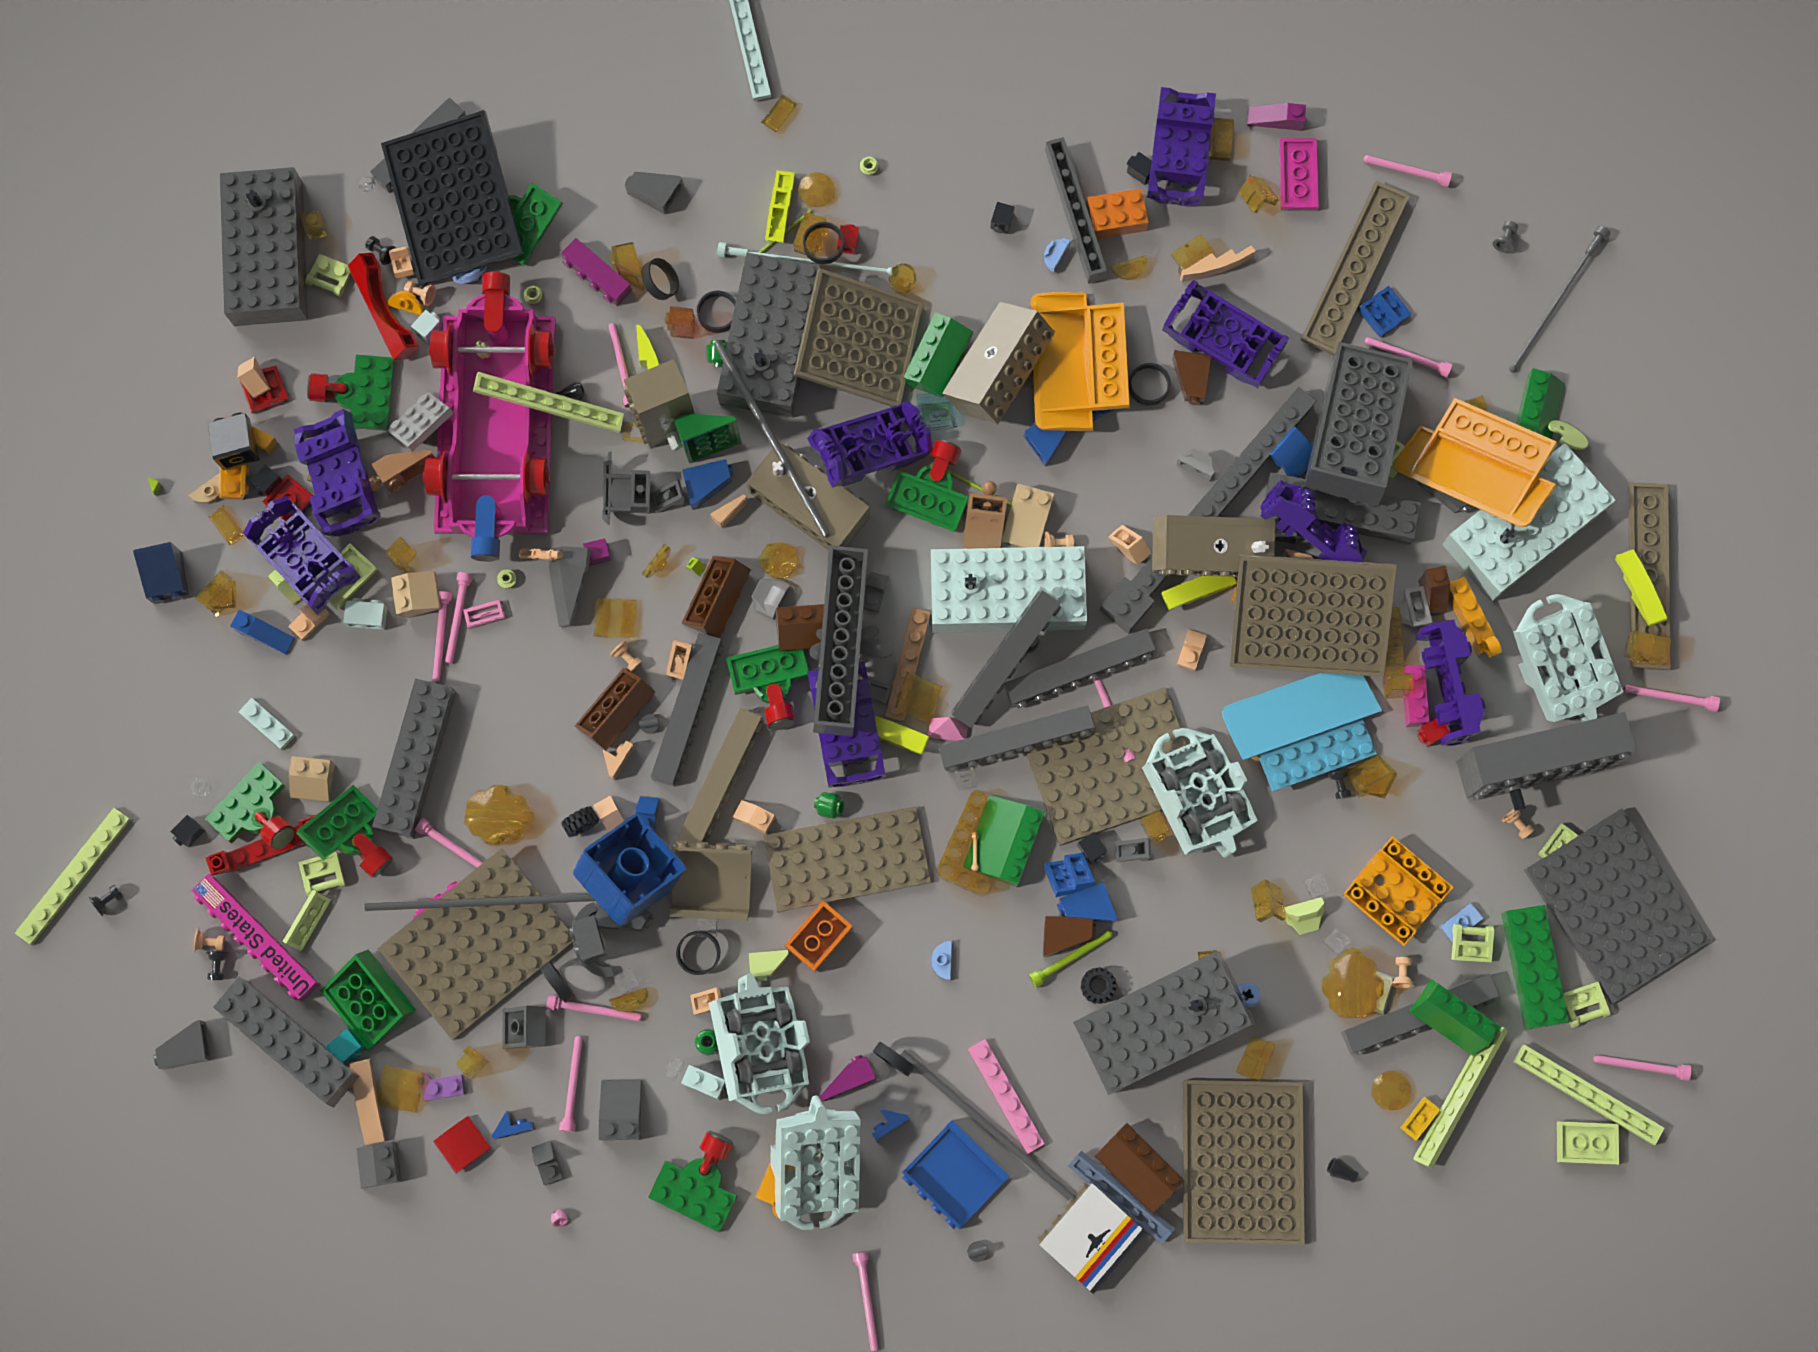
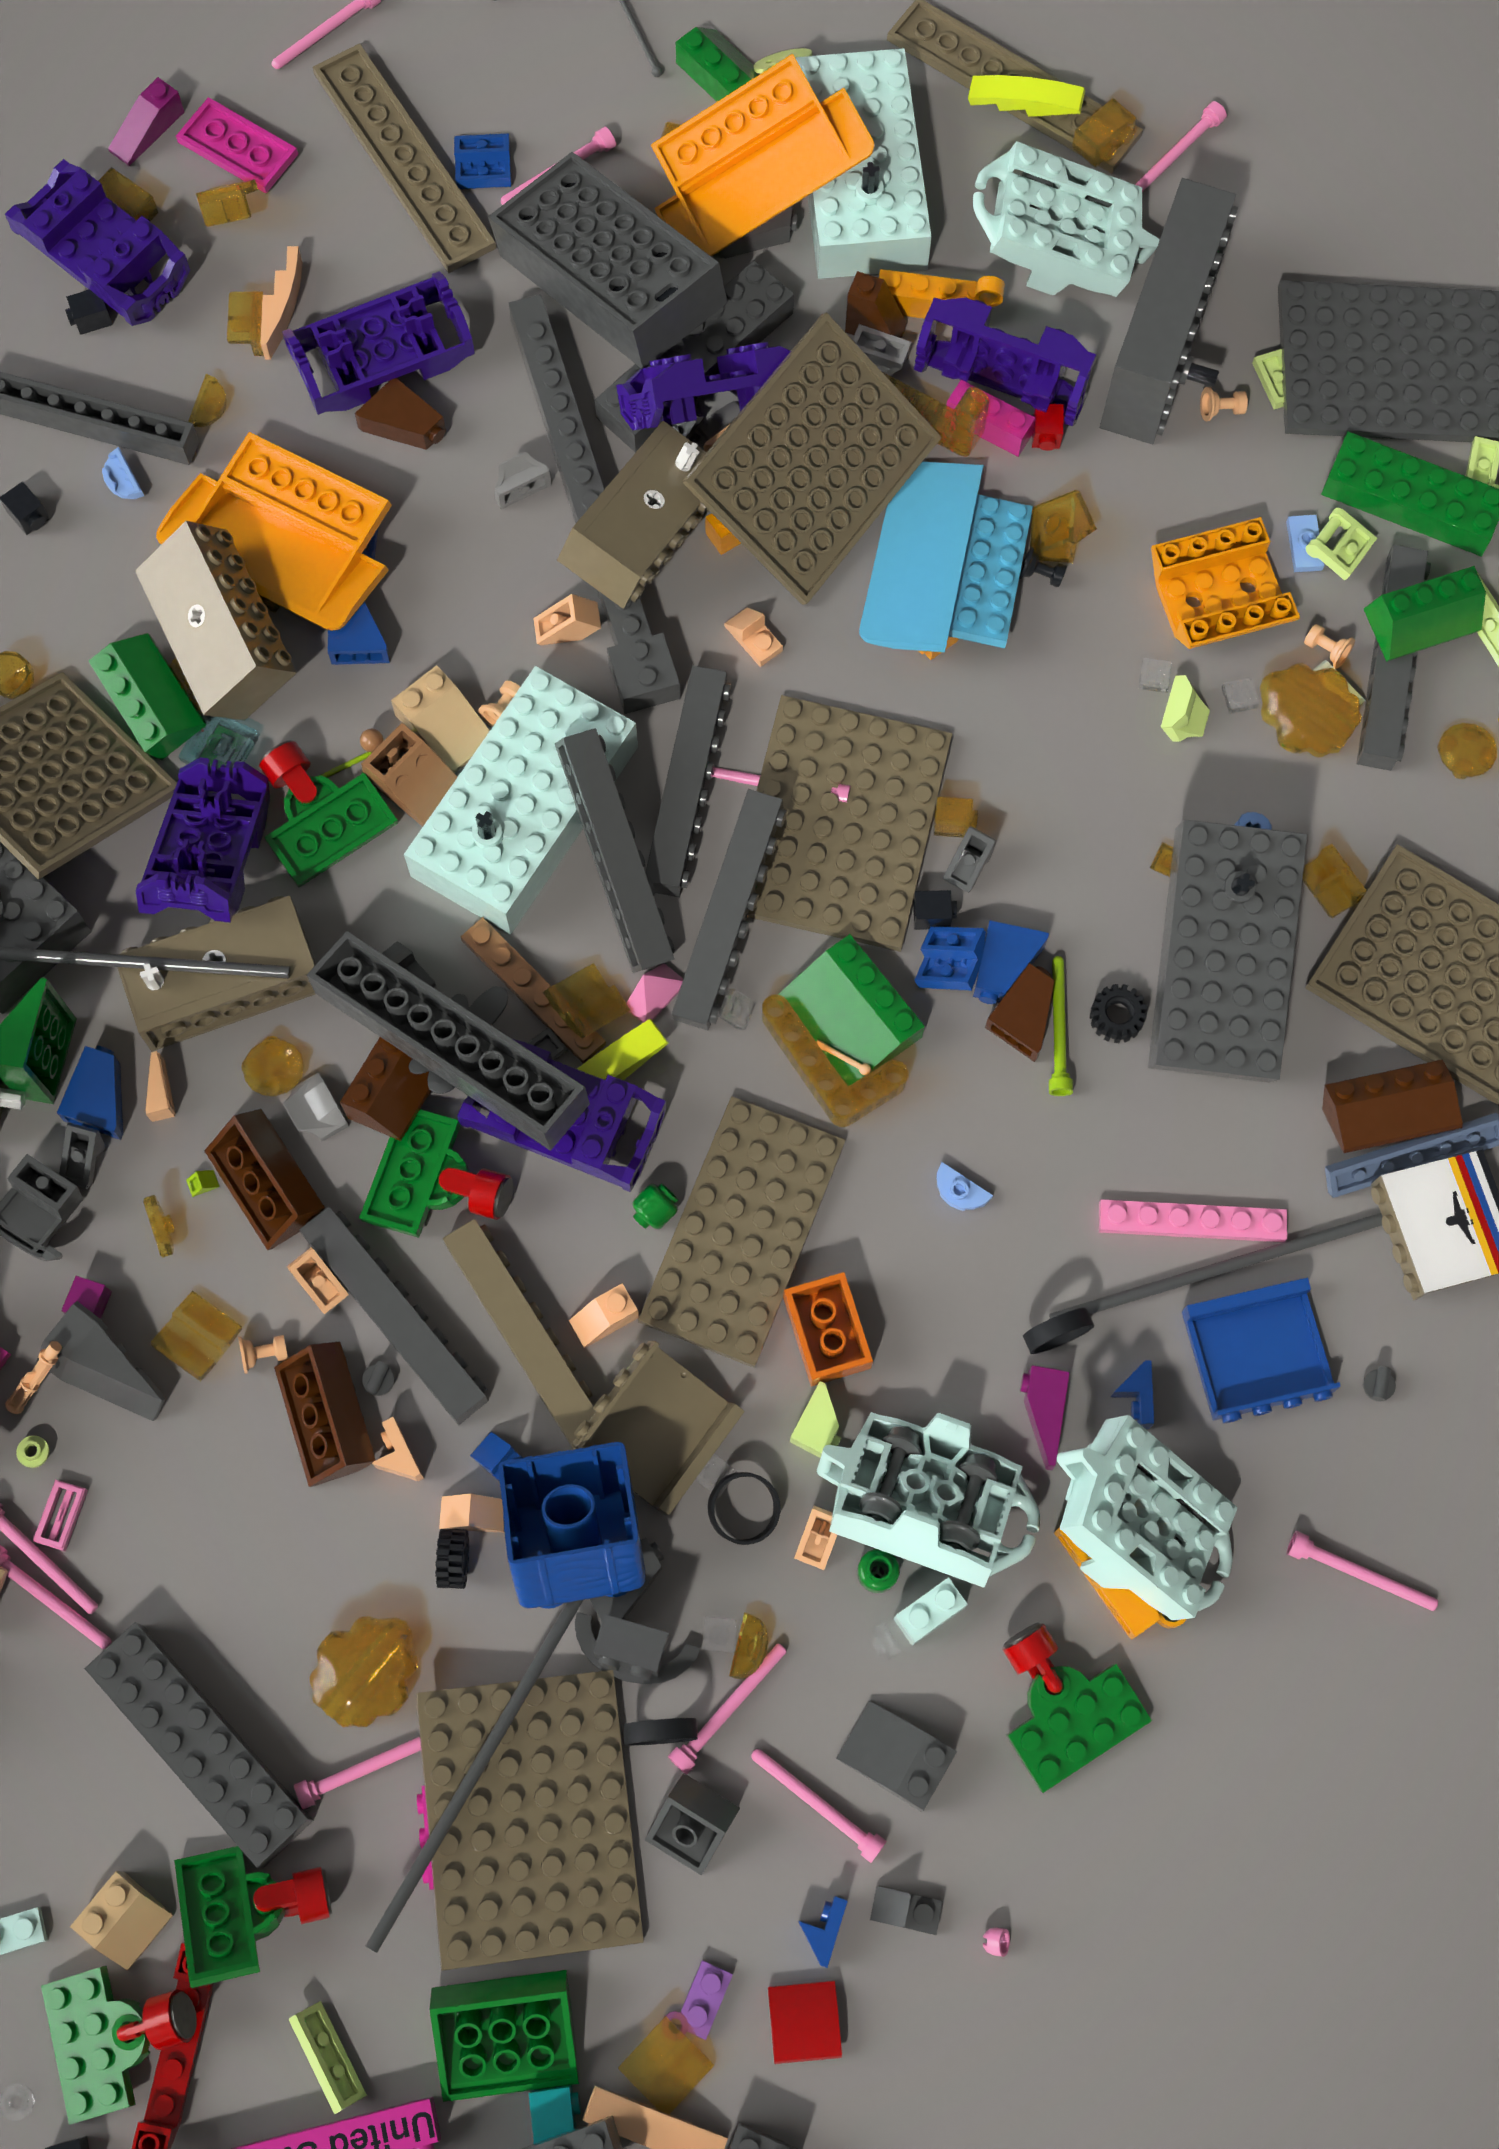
camera: 60 degrees left, 5 degrees down
(317, 868) = (261, 1990): yellowish green plate -> none
(471, 1062) = (695, 1933): clear yellow panel -> none
(1117, 213) = (128, 367): orange brick -> none
(1153, 366) = (381, 448): black tyre -> none
(1176, 792) = (953, 715): light aqua piece -> none
(1196, 589) = (681, 581): neon yellow slope -> none
(1267, 901) = (1139, 742): clear yellow panel -> none
(1293, 453) = (587, 362): blue slope -> none

